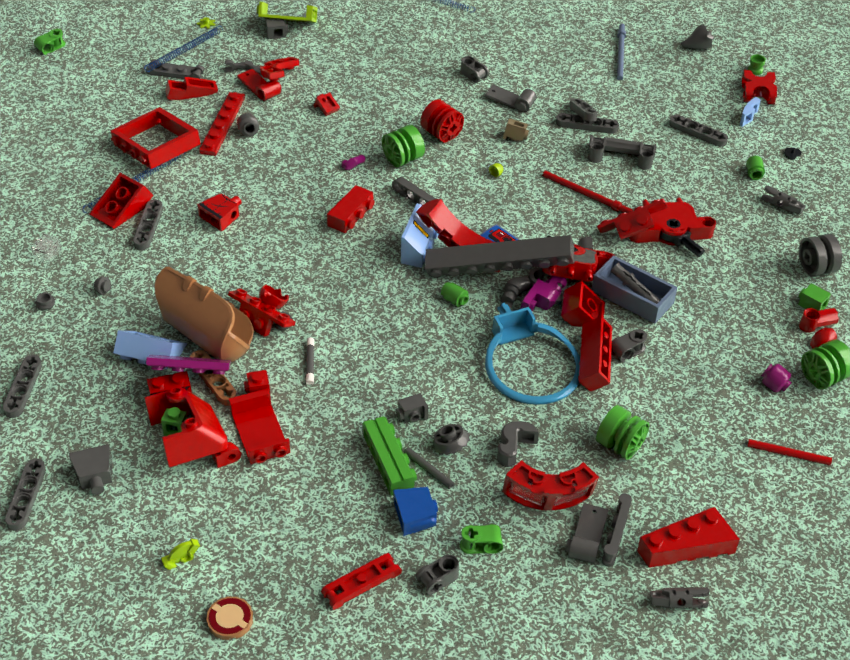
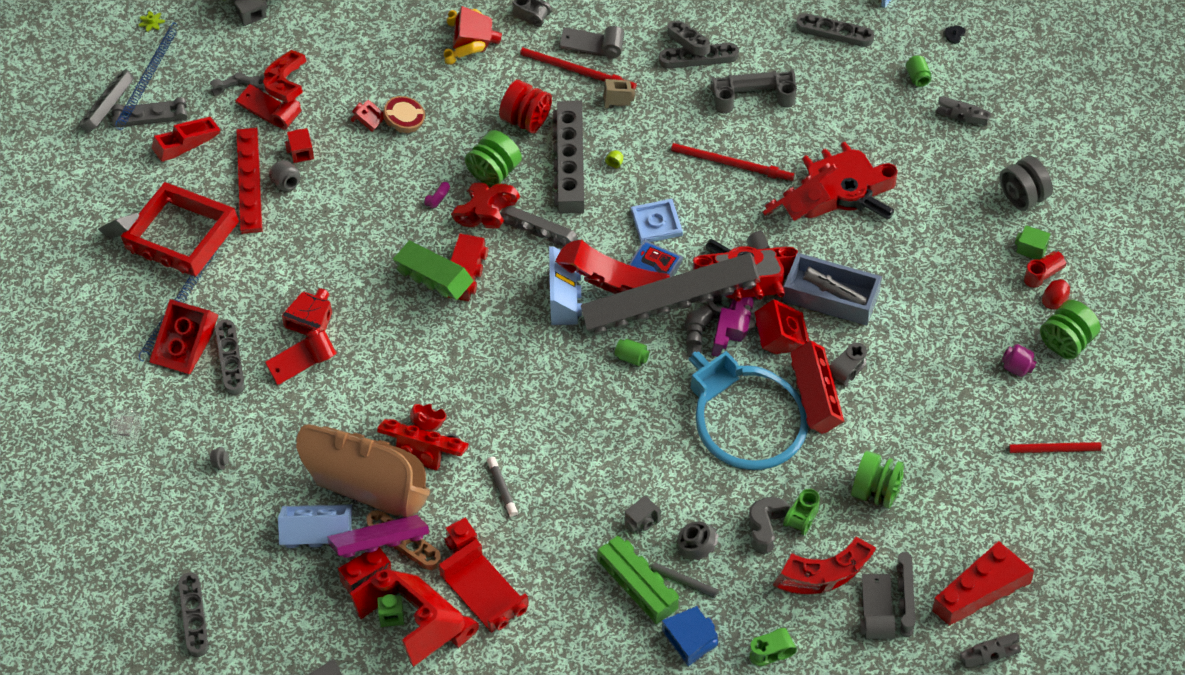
camera: 15 degrees left, 10 degrees up
(45, 301) = (161, 499): dark grey plate -> none
(112, 122) = (118, 226): none -> dark grey slope
(149, 56) = (106, 101): none -> beam
(199, 235) = (300, 356): none -> red door
(268, 110) = (299, 145): none -> red brick
(323, 201) = (432, 270): none -> bright green brick
(352, 108) = (404, 114): none -> tile
(384, 172) = (485, 205): none -> red piece
(423, 73) = (471, 33): none -> torso
(462, 161) = (570, 157): none -> dark grey brick
(486, 108) = (571, 66): none -> red bar
(512, 215) = (656, 221): none -> light blue tile
(550, 441) = (802, 515): none -> bright green piece

